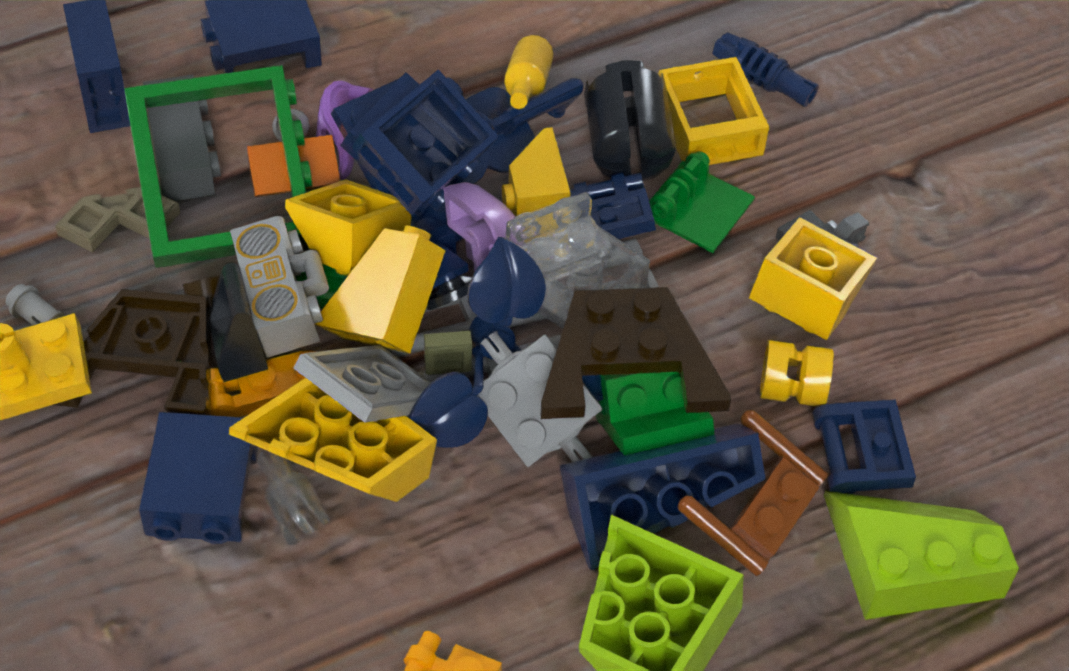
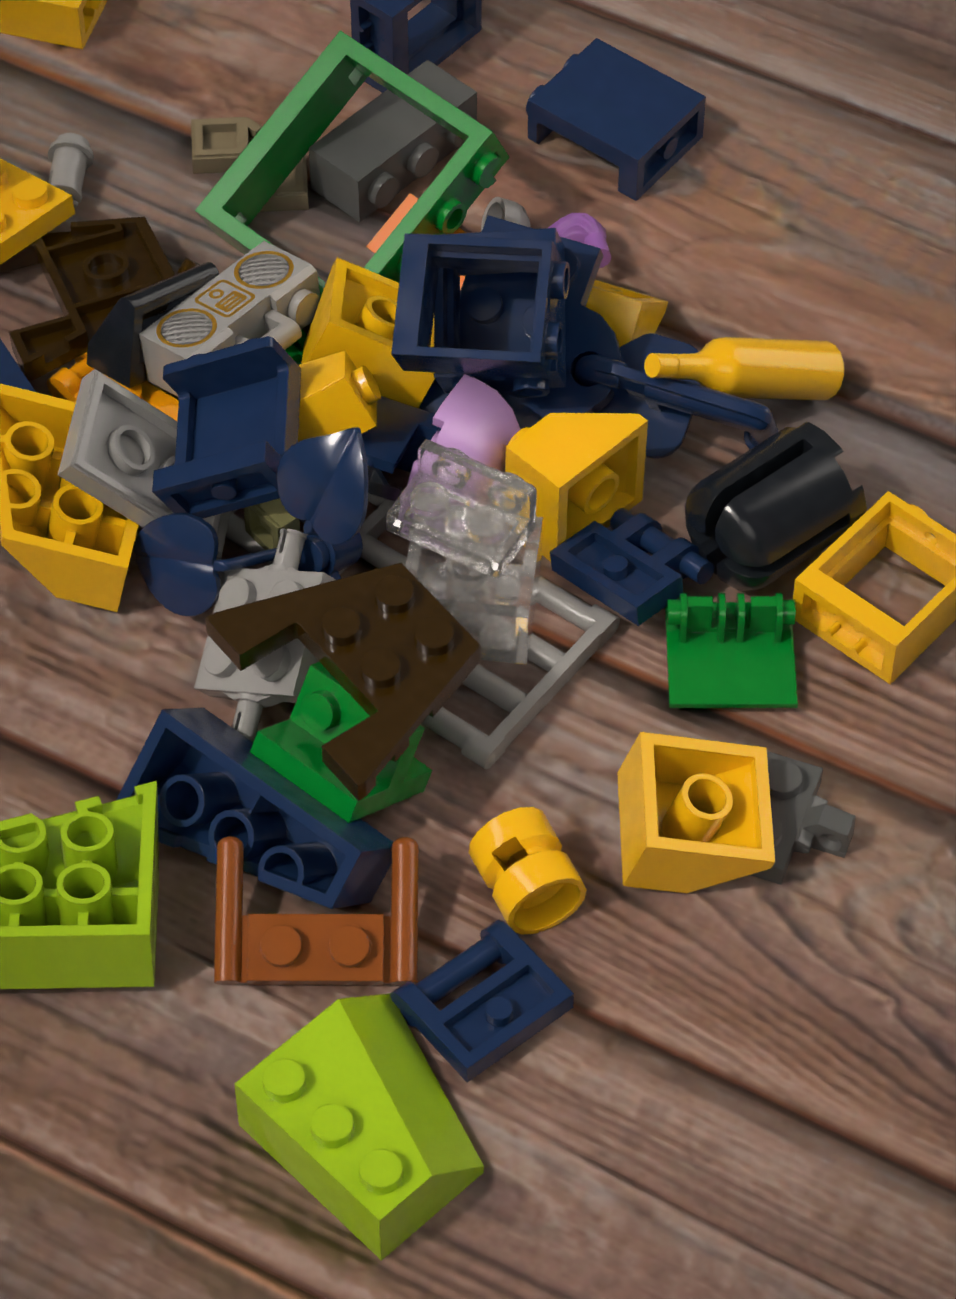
camera: 60 degrees right, 0 degrees up
(396, 317) = (231, 427): none -> dark blue panel

